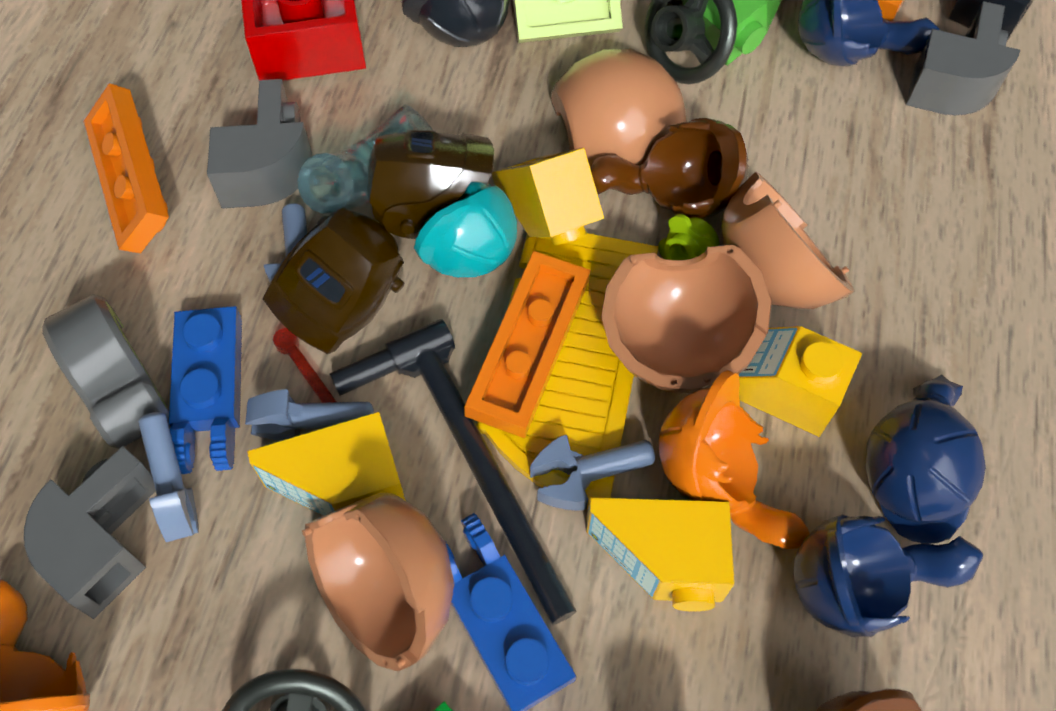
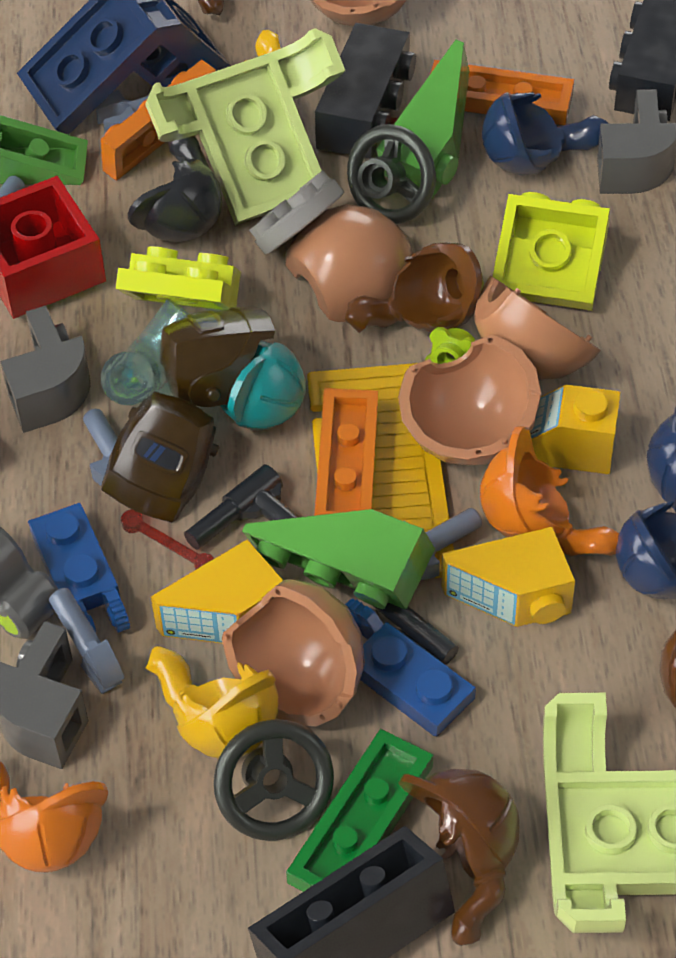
camera: 15 degrees left, 10 degrees down
(267, 616) = (215, 710): none -> yellow piece
(279, 418) = (159, 568): sand blue bar -> none
(418, 84) = (198, 283): none -> neon yellow plate
(494, 463) = (355, 548): none -> bright green slope
(552, 195) = (326, 339): yellow slope -> none
(575, 43) = (296, 212): none -> light grey tile
(835, 156) = (552, 249): none -> neon yellow plate

